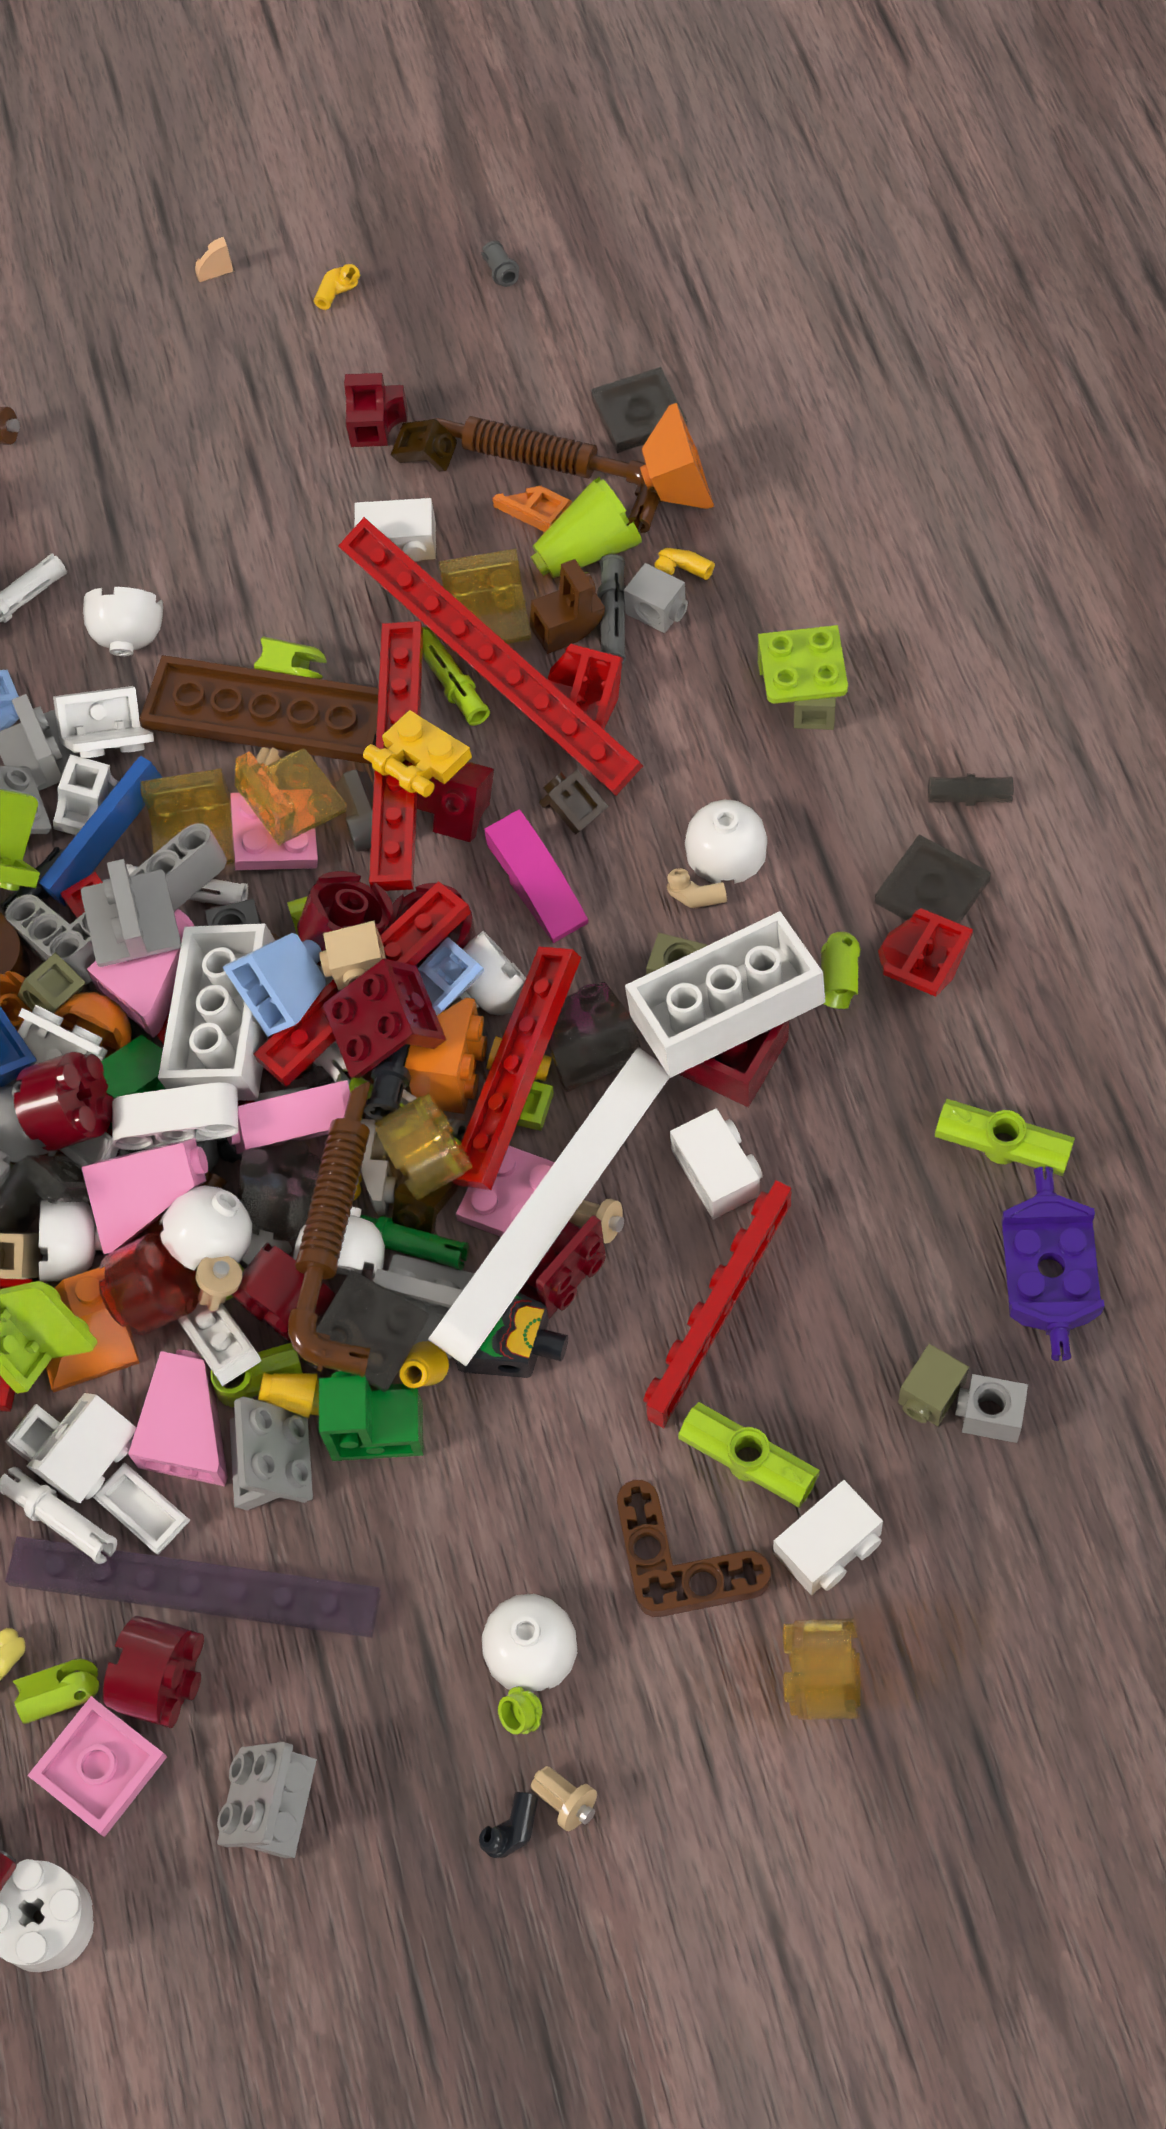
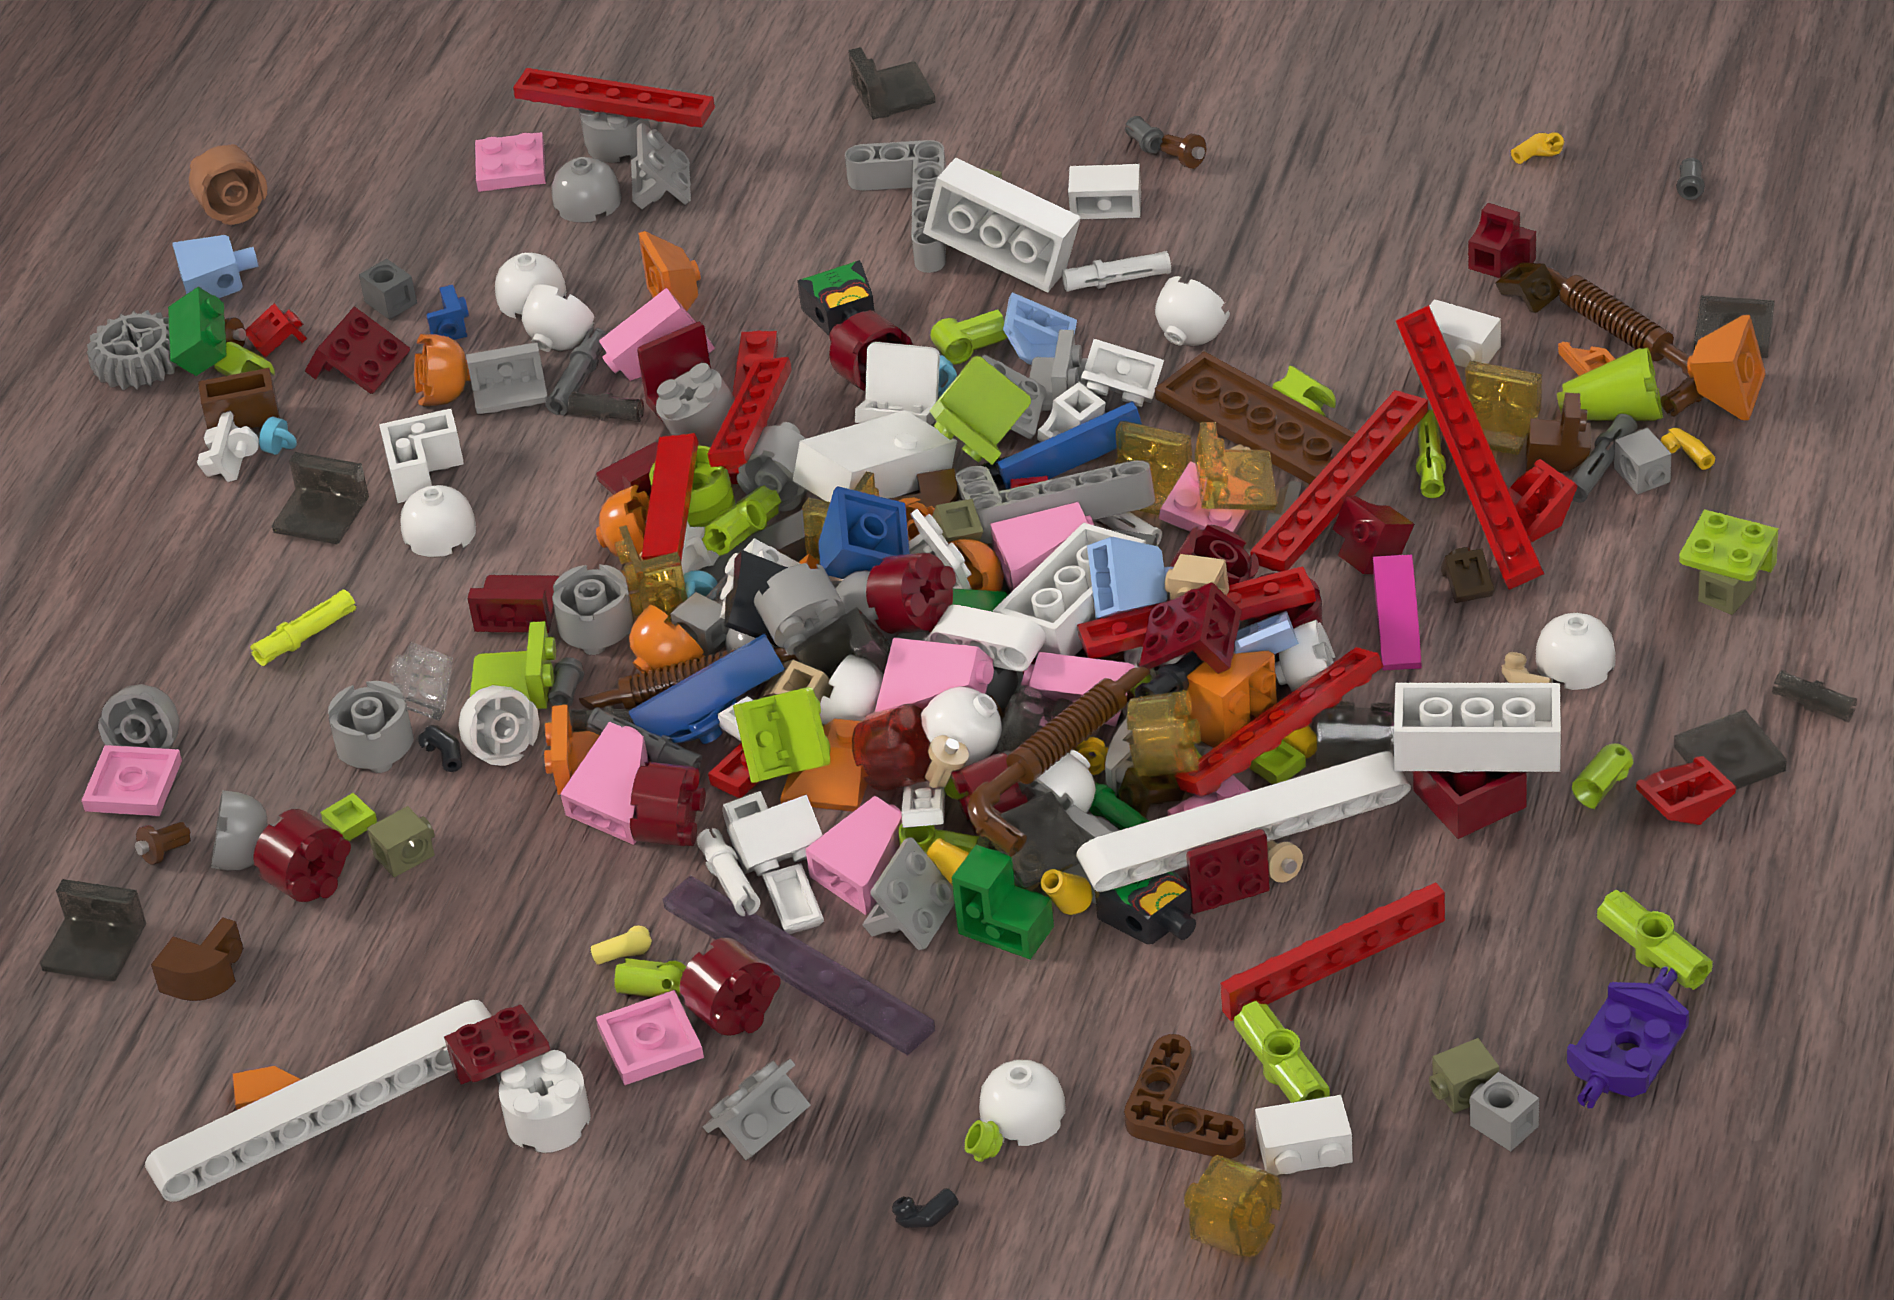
camera: 30 degrees right, 20 degrees down
(130, 915) = (1045, 494): light grey bracket -> none
(214, 261) = (1447, 94): light nougat tile -> none
(424, 746) = (1361, 480): yellow plate -> none
(572, 1803) = (980, 1213): tan piece -> none
(716, 1163) = (1399, 857): white brick -> none

